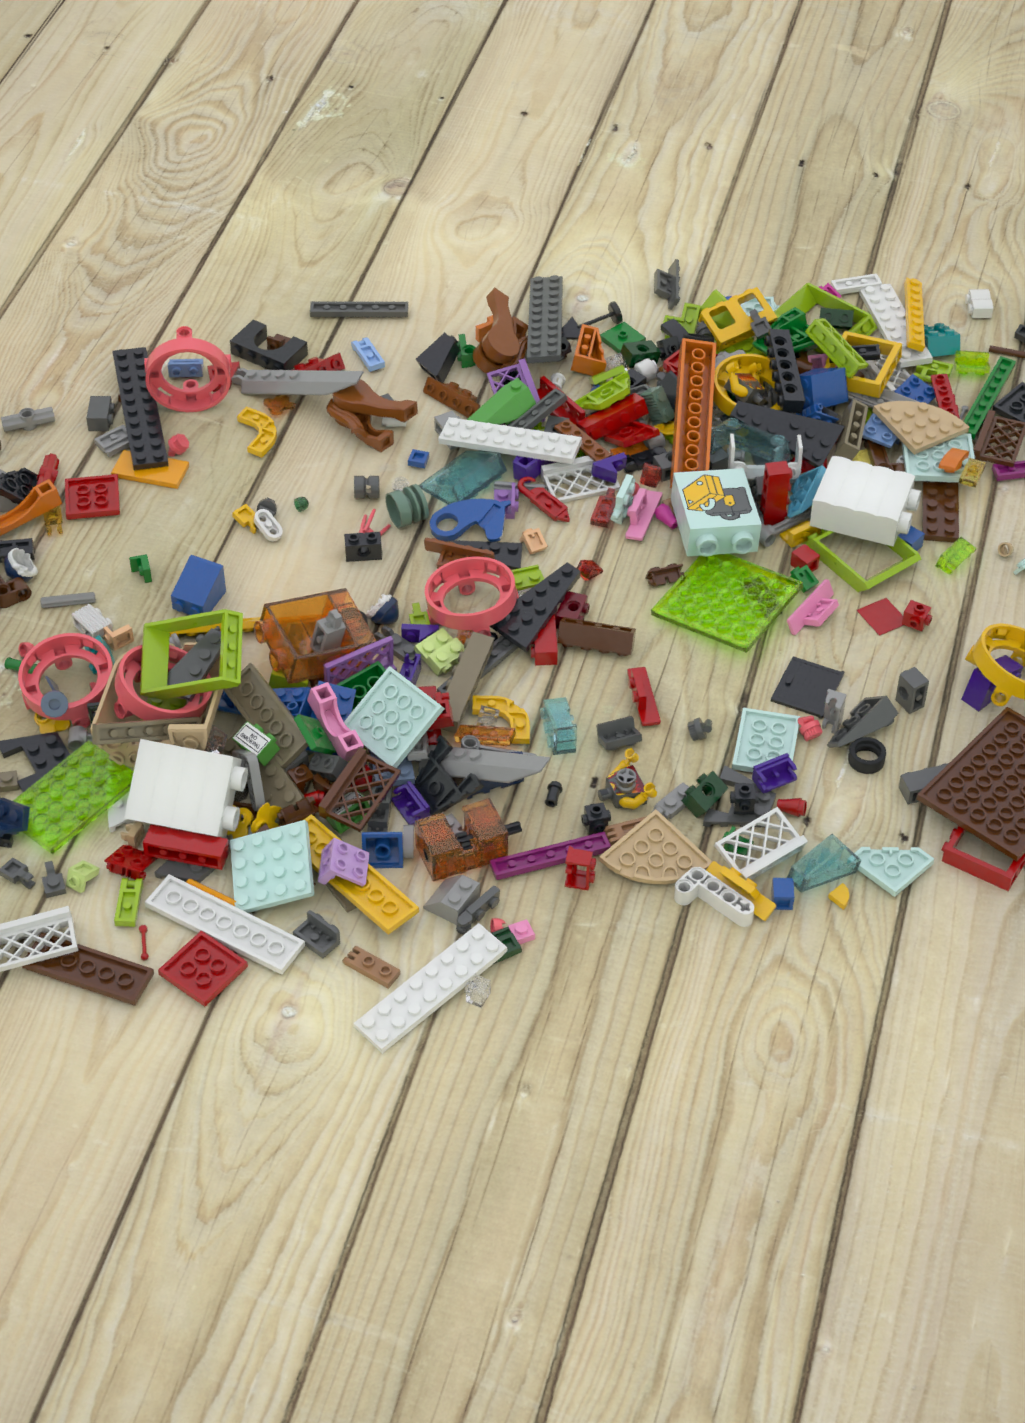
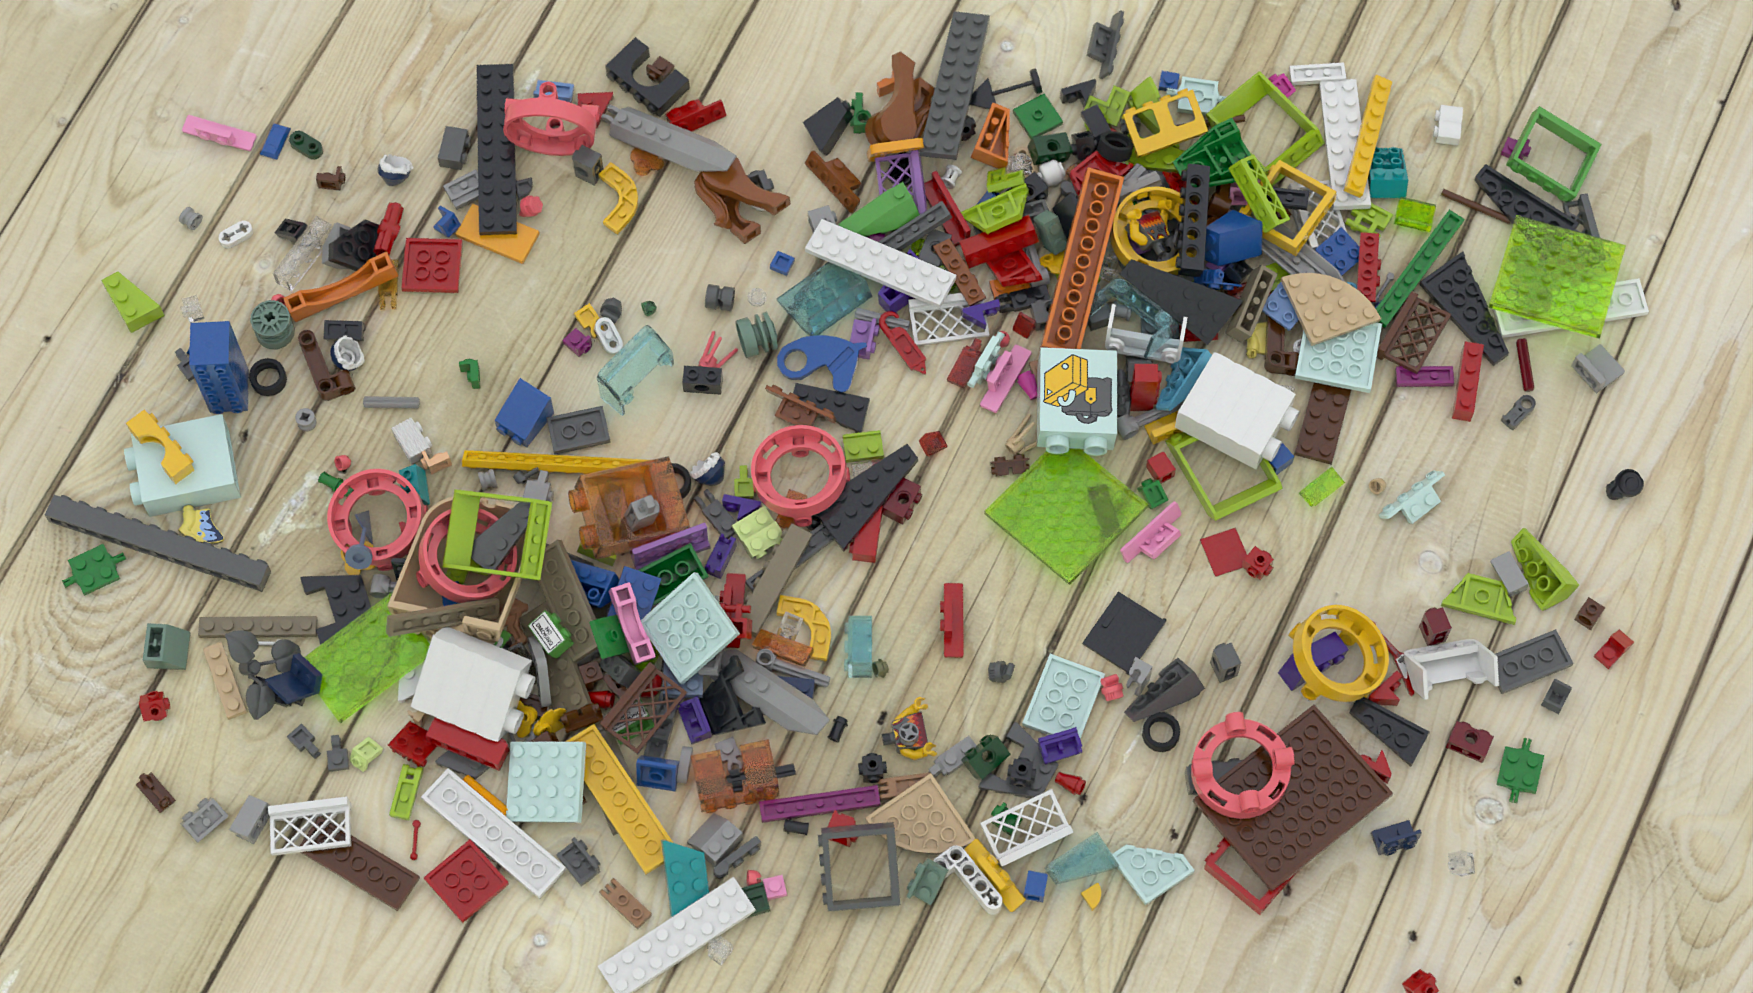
camera: 10 degrees right, 20 degrees up
(28, 419) = (387, 144): light grey piece -> none
(46, 434) = (394, 169): none -> white hair
(103, 463) = (448, 223): none -> blue panel
(168, 433) = (524, 187): none -> dark grey tile
(216, 740) = (516, 616): clear plate -> none
(226, 407) = (587, 164): none -> dark grey brick
(240, 536) = (578, 342): none -> magenta bracket
(251, 596) = (578, 430): none -> dark grey plate
(292, 534) = (631, 366): none -> clear light blue windscreen
(344, 861) = (614, 792): lavender bracket -> none
(359, 309) = (755, 31): dark grey plate -> none
(368, 354) = (754, 101): light blue plate -> none
(427, 927) = (684, 875): none -> teal wing
(492, 358) = (882, 149): none -> light orange beam
(533, 540) = (882, 397): light nougat bracket -> none
(535, 878) = (796, 827): none -> black pin
(583, 741) = (880, 668): none -> olive plate
(597, 636) = (920, 539): reddish brown brick -> none
(618, 733) = (917, 666): dark grey bracket -> none
(637, 884) = (856, 831): none -> dark grey window
(653, 316) = (1079, 91): none -> black slope
(668, 557) = (1016, 443): none -> tan plant
(674, 901) = (927, 881): none -> sand green bracket
(759, 325) = (1185, 144): dark grey plate -> none
(838, 318) = (1279, 127): dark green brick -> none
(953, 460) = (1349, 364): orange slope -> none
(972, 472) = (1365, 384): clear yellow plate -> none
(975, 783) = (1250, 802): none -> coral piece

